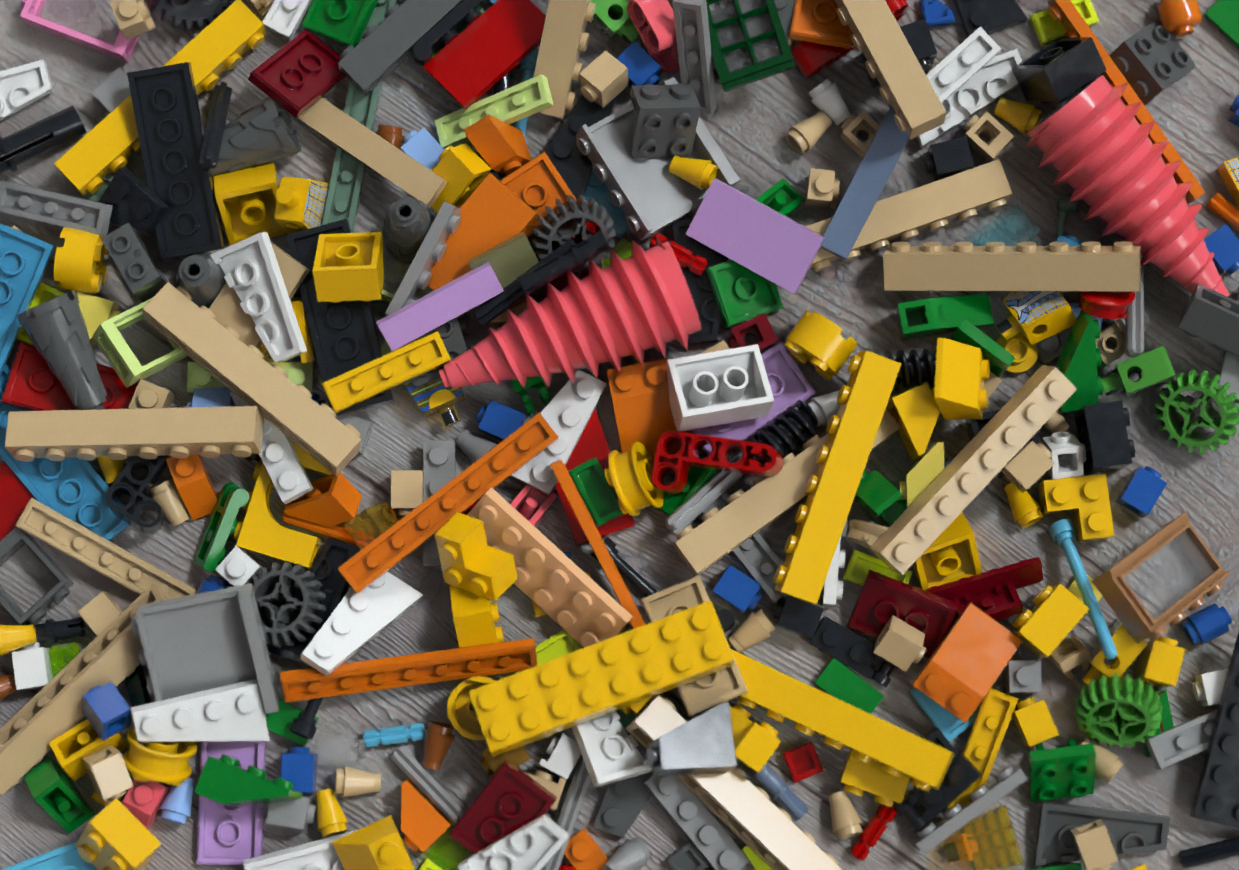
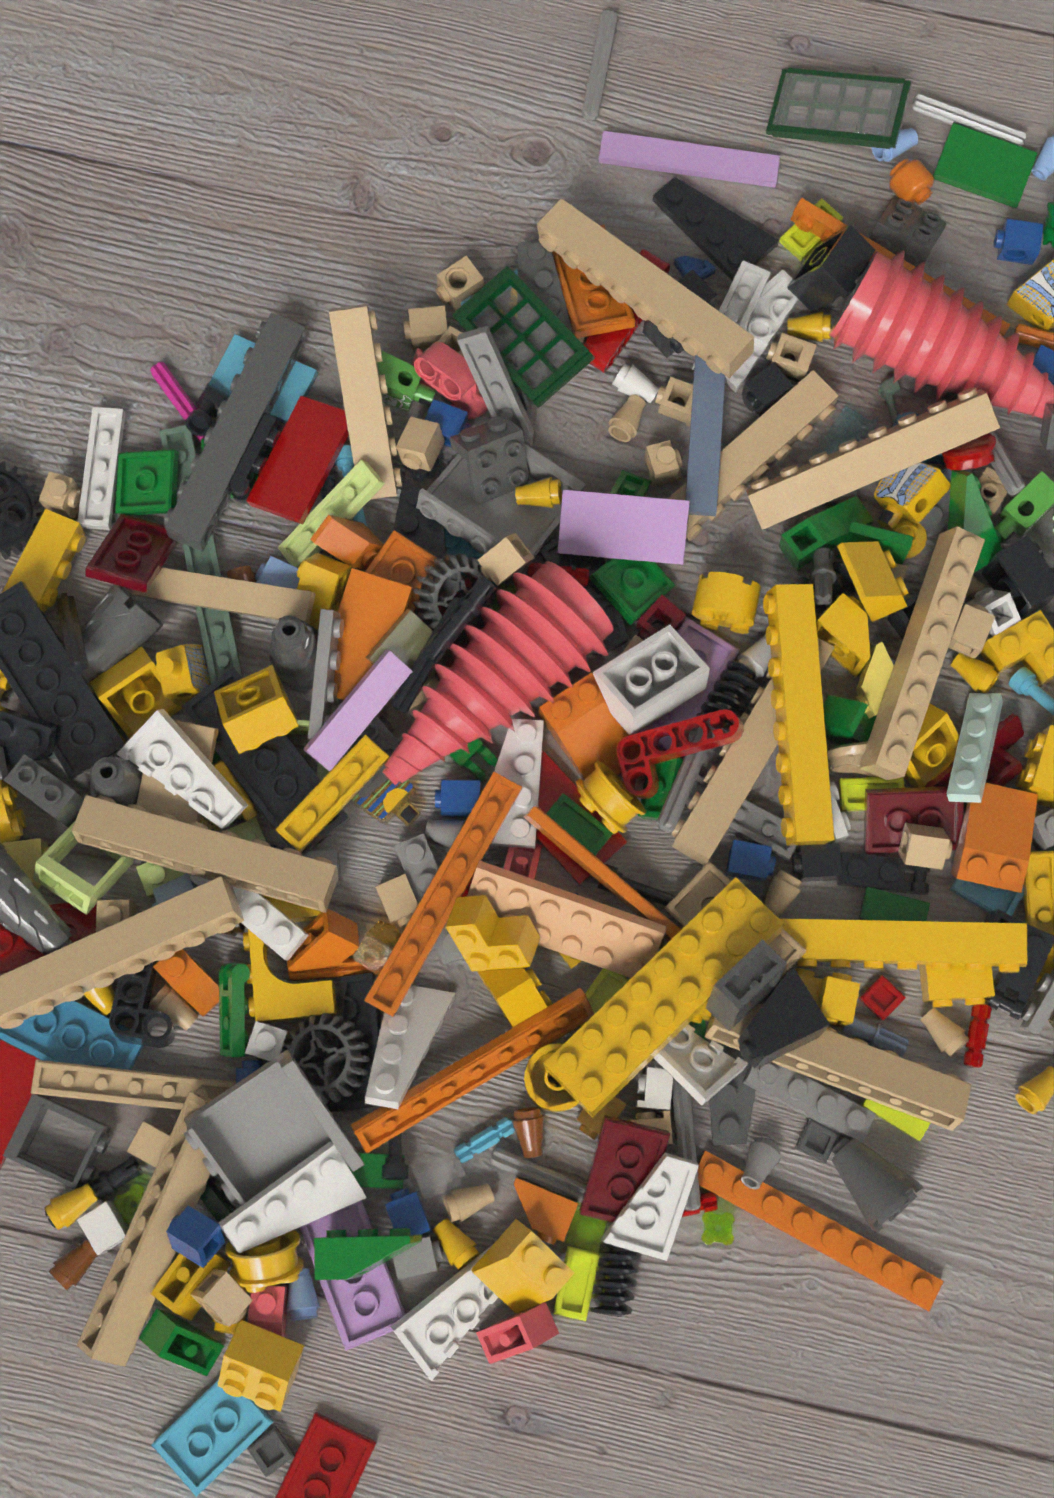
camera: 25 degrees left, 5 degrees down
(631, 223) = (505, 559): none -> tan brick
(683, 694) = (745, 983): none -> dark grey window
(917, 359) = (823, 575): none -> dark grey axle
(986, 573) = (975, 747): none -> light aqua plate

